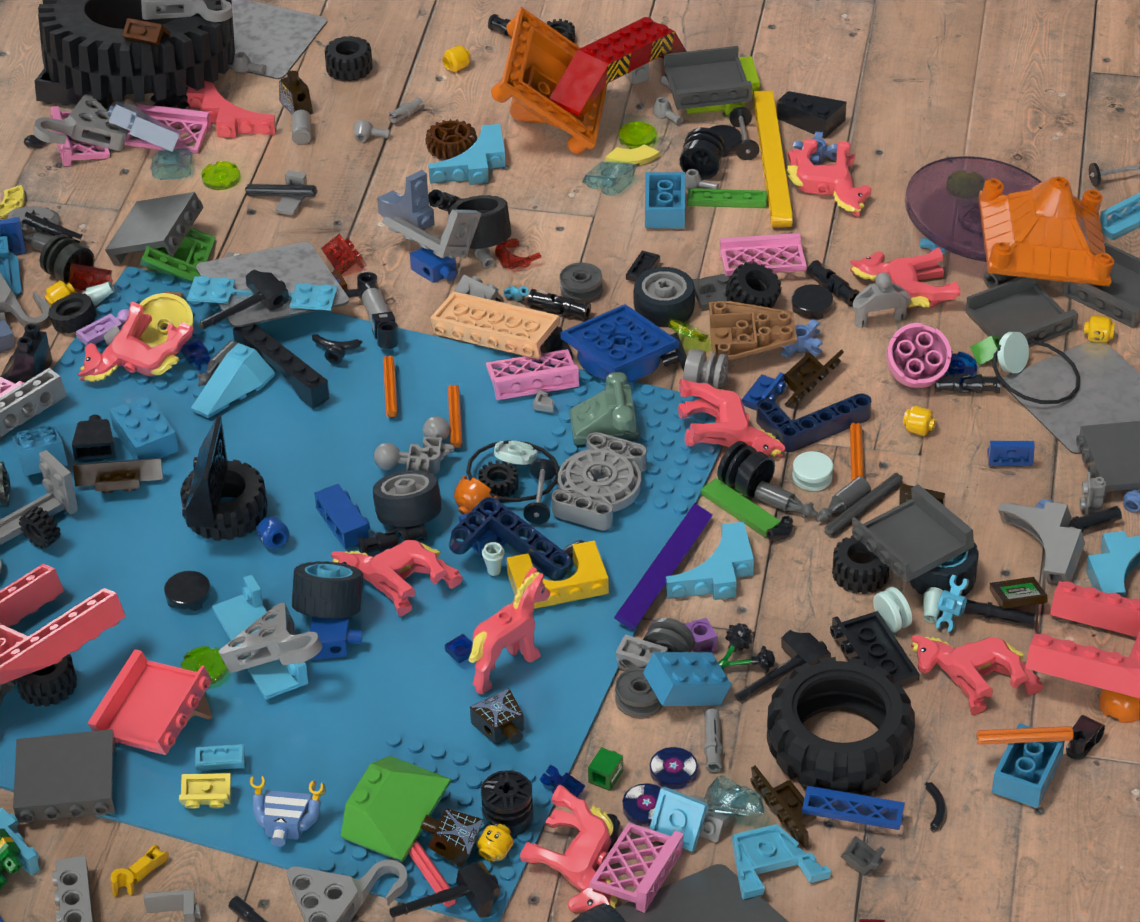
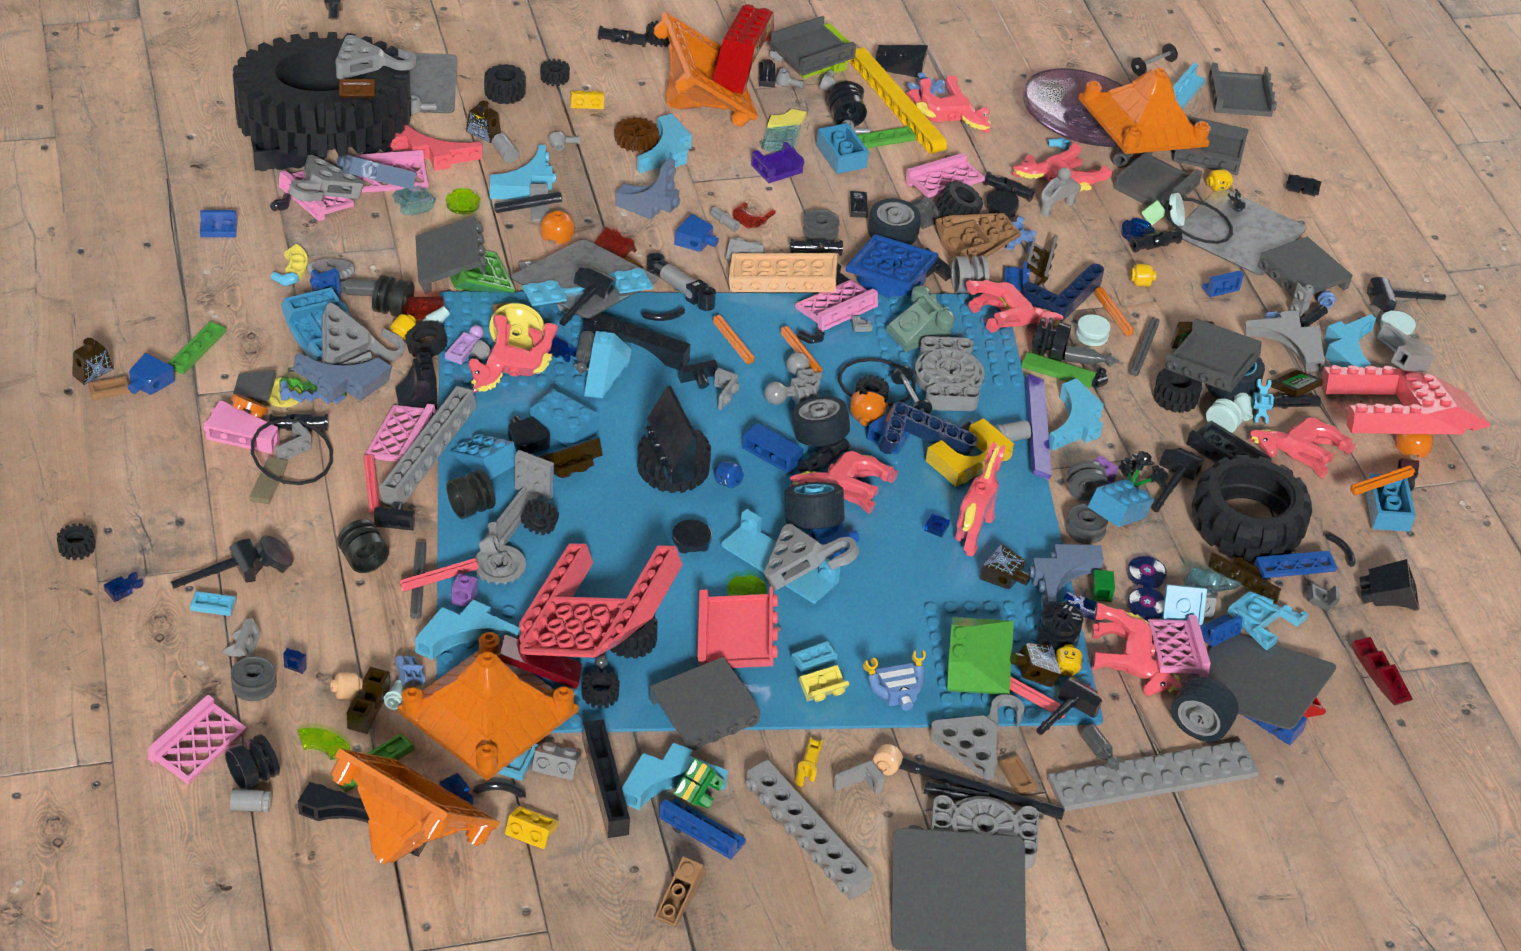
camera: 30 degrees left, 0 degrees up
(49, 227) = (352, 272): black pin -> none
(218, 894) = (888, 759): none -> light nougat head
(295, 223) = (557, 227): none -> orange cylinder
(313, 161) = (517, 183): none -> medium azure arch
(322, 414) = (698, 372): none -> black tile
(335, 353) = (672, 323): black bush -> none
(345, 437) = (729, 384): none -> light grey bracket
(406, 110) = (581, 117): light grey pin -> none
(413, 55) = (554, 72): none -> black tyre
(428, 91) = (587, 99): none -> yellow bracket
(442, 199) = (682, 183): black piece -> none
(453, 242) = (714, 210): light grey bracket -> none
(456, 58) = (592, 68): yellow head -> none
(478, 406) = (811, 339): none -> black arm
(493, 557) = (916, 449): light aqua cone -> none
(494, 221) = (715, 194): black tyre -> none
(515, 452) = (871, 367): light aqua tile -> none
(517, 294) = (776, 246): medium azure arm -> none
(574, 733) = (1062, 566): none -> sand blue arch
(585, 204) = (778, 164): none -> dark purple panel
(624, 564) = (1016, 430): none -> light grey piece
(636, 652) = (1072, 494): light grey brick -> none
(637, 134) = (778, 102): clear neon green tile -> none
(646, 100) = (767, 73): none -> black tile
(688, 330) = (931, 244): clear neon green tile -> none
(707, 120) = (828, 81): none -> light grey bar
(708, 859) = (1221, 629): none -> blue bracket
(713, 747) = (1165, 550): light grey pin -> none
(747, 148) = (874, 96): black axle -> none
(845, 498) = (1131, 344): dark grey wheel -> none
(917, 355) = (1115, 226): bright pink cylinder -> none
(959, 868) = (1390, 586): none -> black hips
(1103, 362) = (1238, 204): none -> black arm

